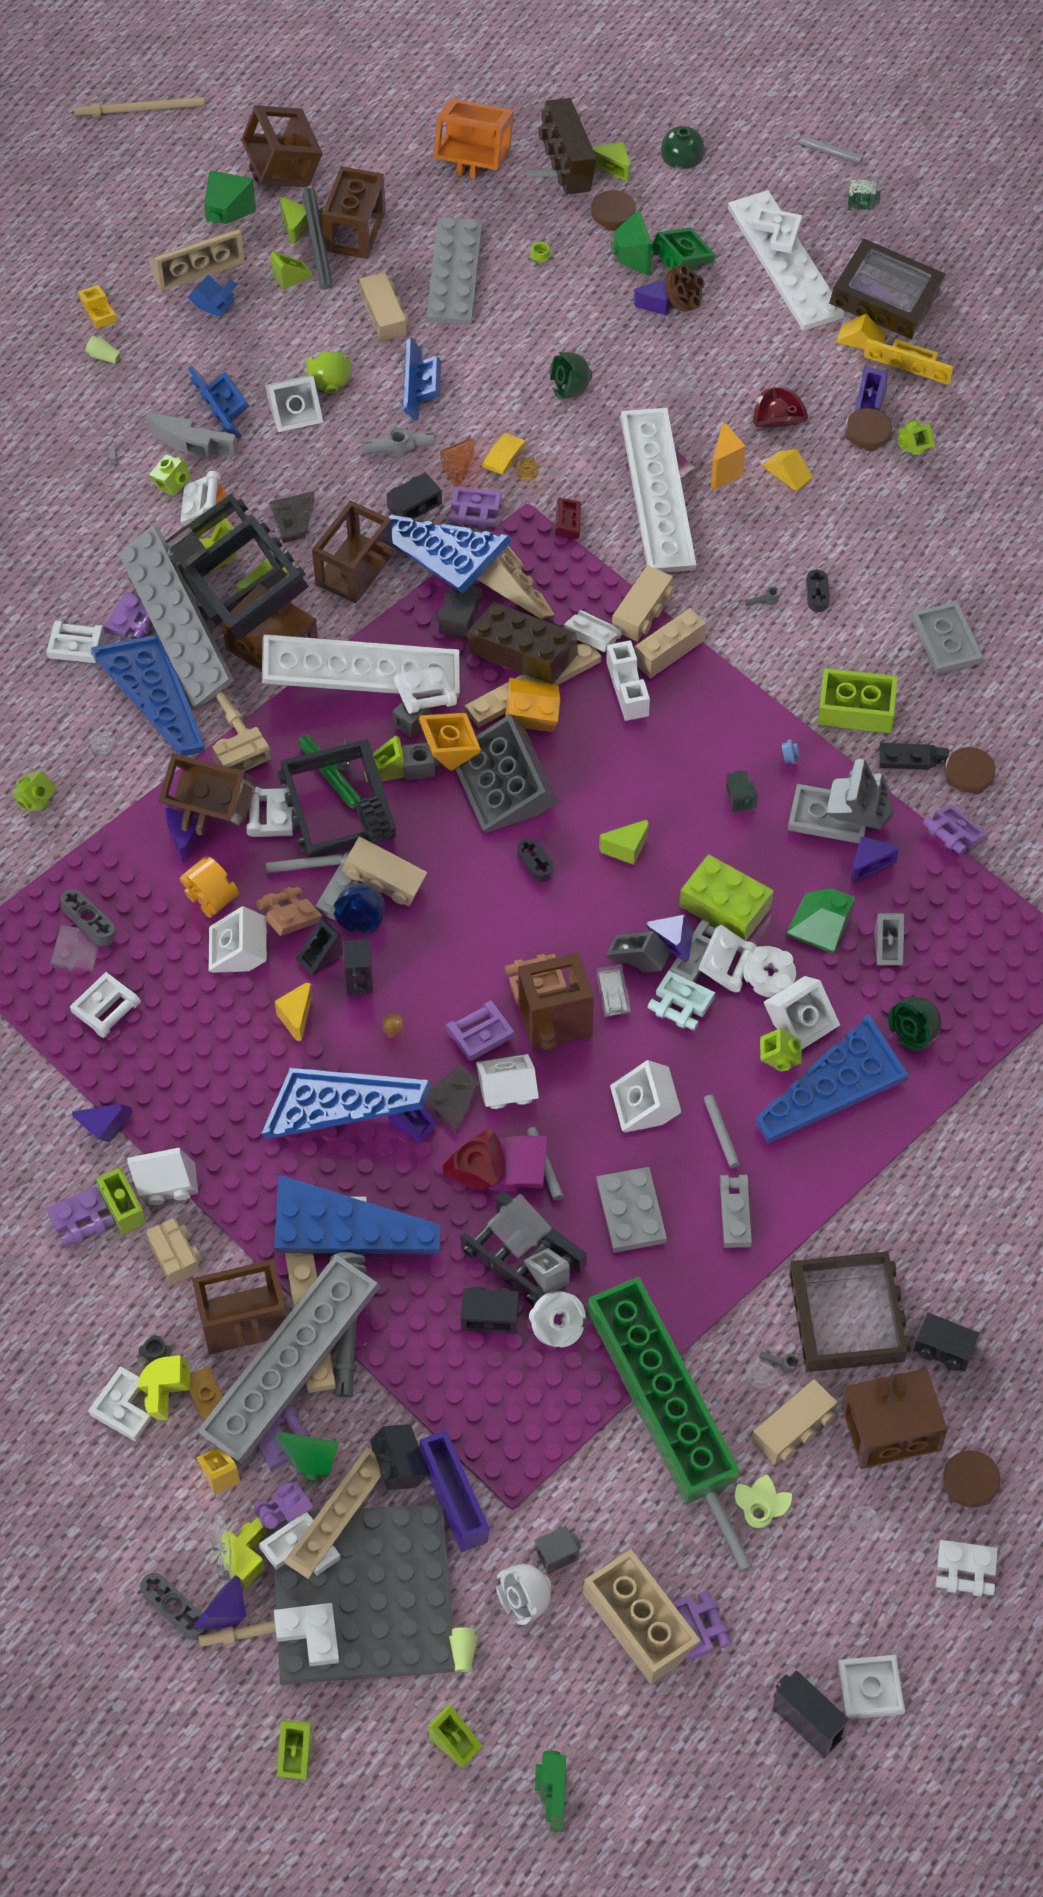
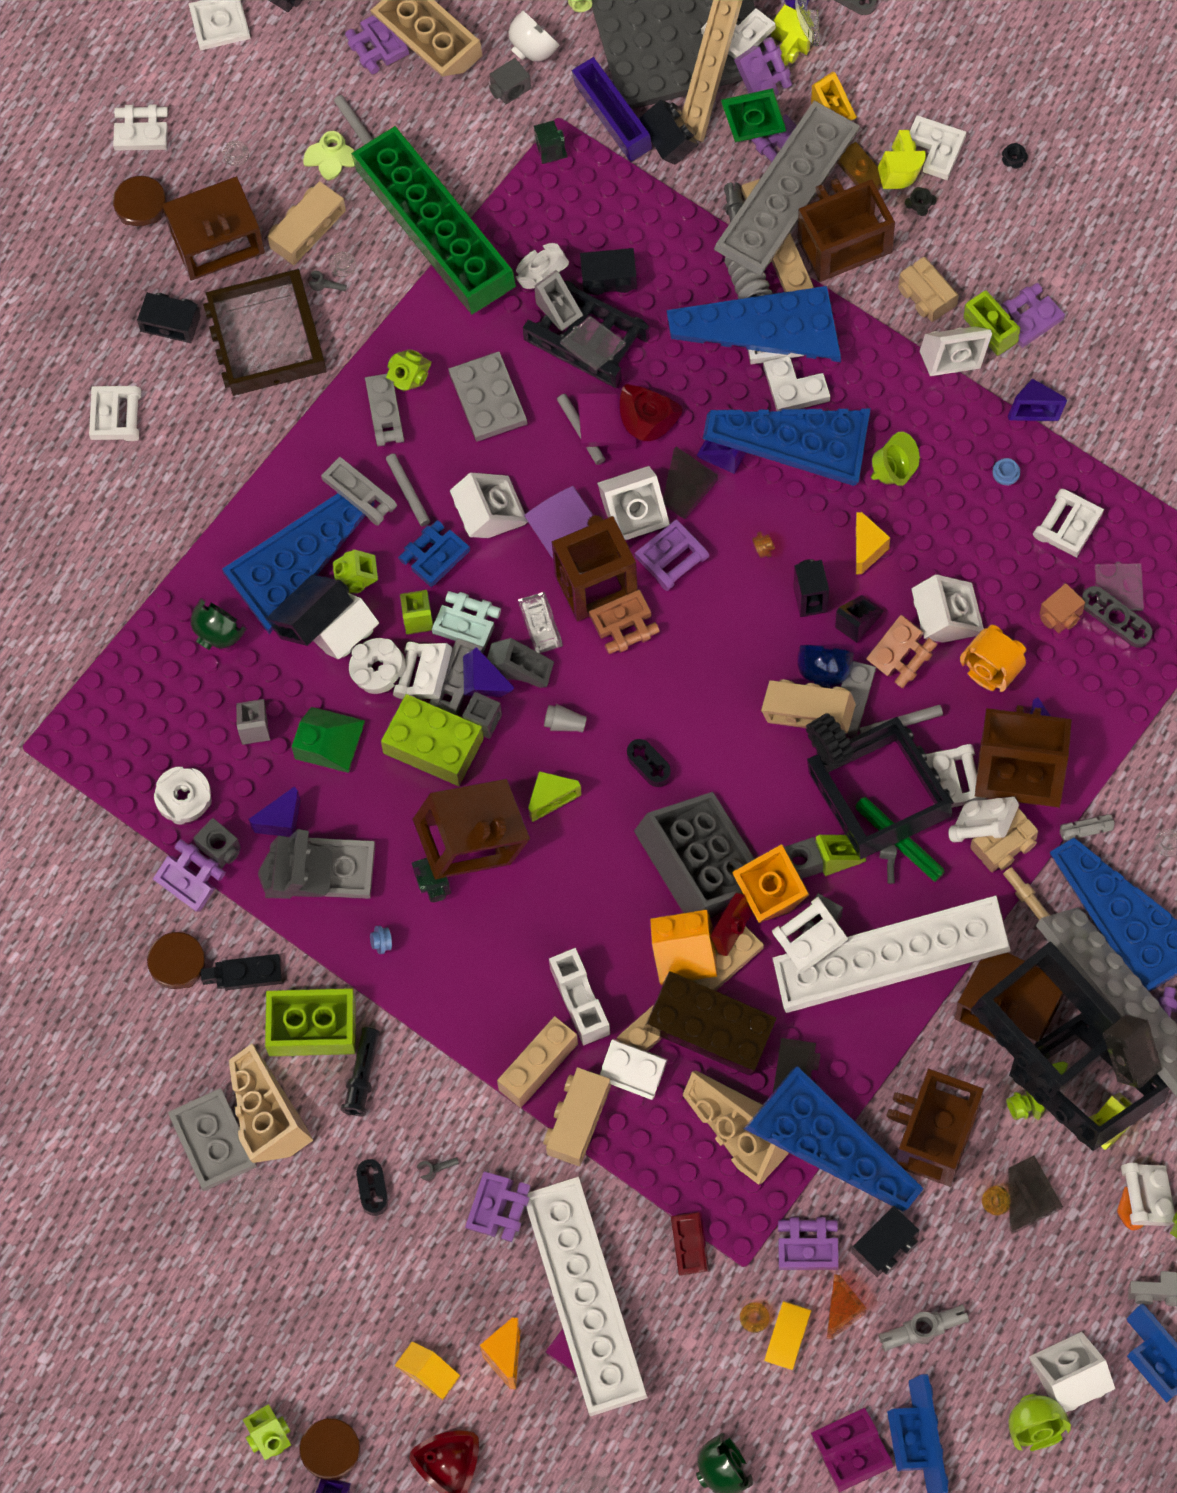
camera: 175 degrees right, 10 degrees up
(46, 1376) = (1014, 150): none -> black plate
(135, 928) = (1062, 609): none -> nougat brick
(148, 1060) = (1006, 471): none -> medium blue plate
(160, 762) = (1087, 827): none -> light grey axle
(248, 762) = (984, 819): none -> white plate
(252, 1078) = (896, 460): none -> lime piece
(320, 515) = (990, 1203): none -> clear yellow plate
(329, 1166) = (792, 392): none -> white plate
(471, 382) = (852, 1450): none -> magenta slope
(489, 710) = (731, 924): none -> dark red plate
(526, 1460) = (549, 142): none -> clear green brick
(576, 1074) = (559, 516): none -> medium lavender slope
(605, 902) = (562, 719): none -> light grey cone
(678, 903) = (483, 712): none -> dark grey brick
(700, 1057) = (439, 558): none -> blue plate
(702, 802) = (470, 822): none -> reddish brown piece
(707, 1233) = (408, 369): none -> lime brick
(722, 563) = (490, 1204): none -> medium lavender plate
(727, 1011) = (416, 612): none -> lime slope
(770, 1119) = (358, 490): none -> light grey plate
(820, 659) = (355, 1084): none -> black pin
(827, 1013) = (310, 609): none -> black brick
(899, 643) = (266, 1116): none -> tan wedge
(928, 853) = (214, 832): none -> dark grey brick
(957, 903) = (182, 810): none -> white plate
(1015, 1258) = (105, 413): none -> white plate

